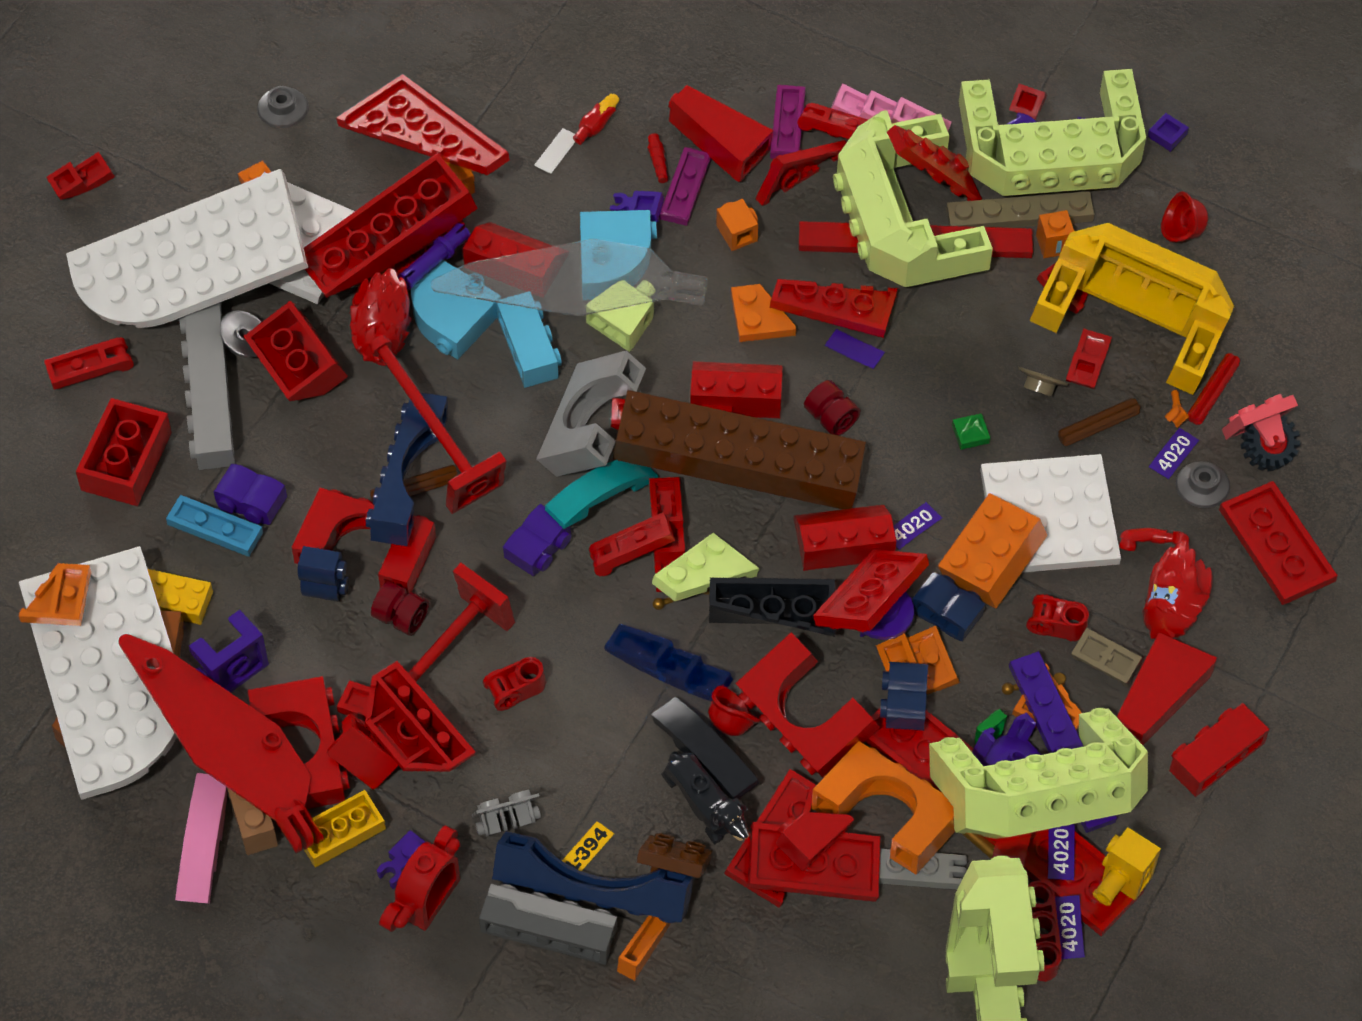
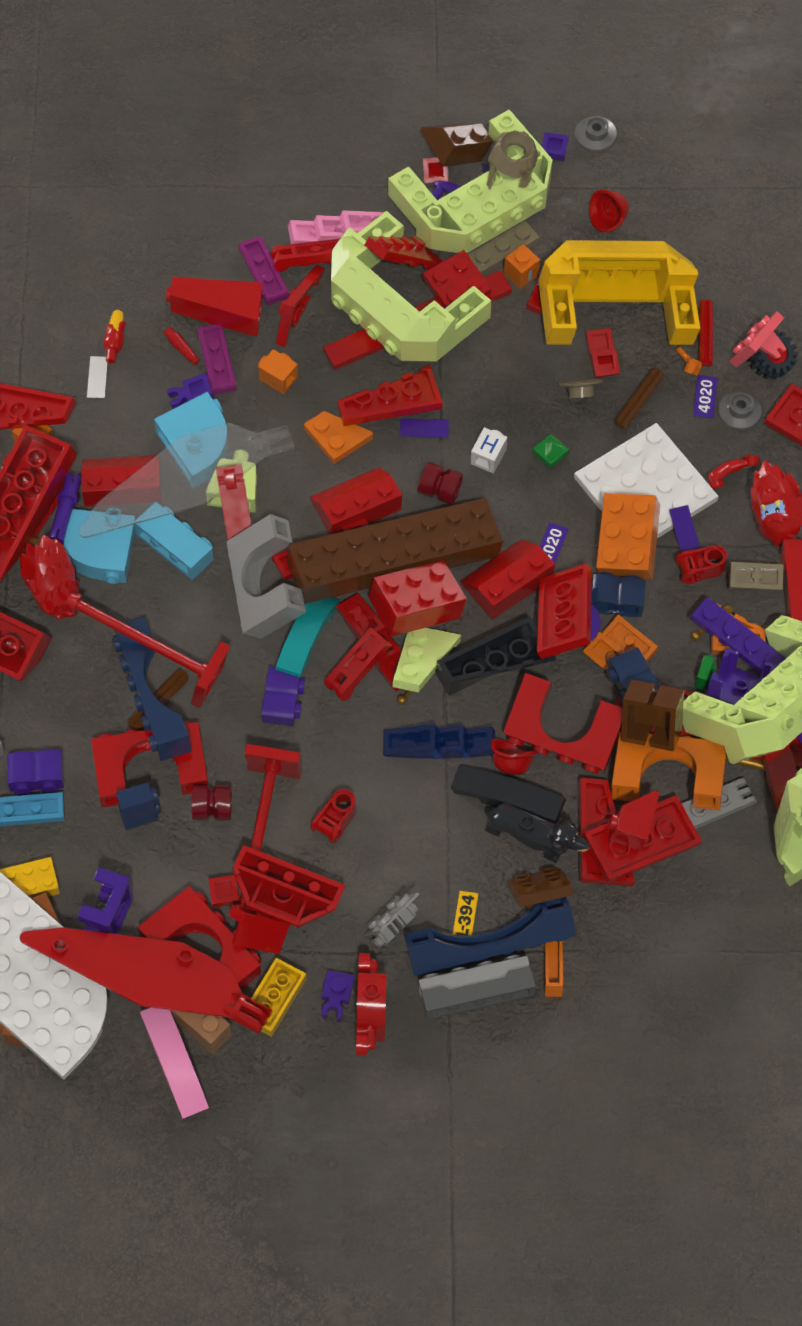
camera: 30 degrees left, 5 degrees up
(608, 322) = (233, 499): none -> red hinge
(732, 507) = (417, 598): none -> red brick
(892, 729) = (650, 707): none -> reddish brown piece
(904, 399) = (488, 450): none -> white brick
(977, 209) = (454, 278): none -> red plate
(1063, 573) = (684, 528): none -> dark purple sticker
(1064, 84) = (458, 142): none -> reddish brown slope
(1083, 112) = (514, 168): none -> dark tan piece
(1223, 140) = (597, 140): none -> flat silver piece

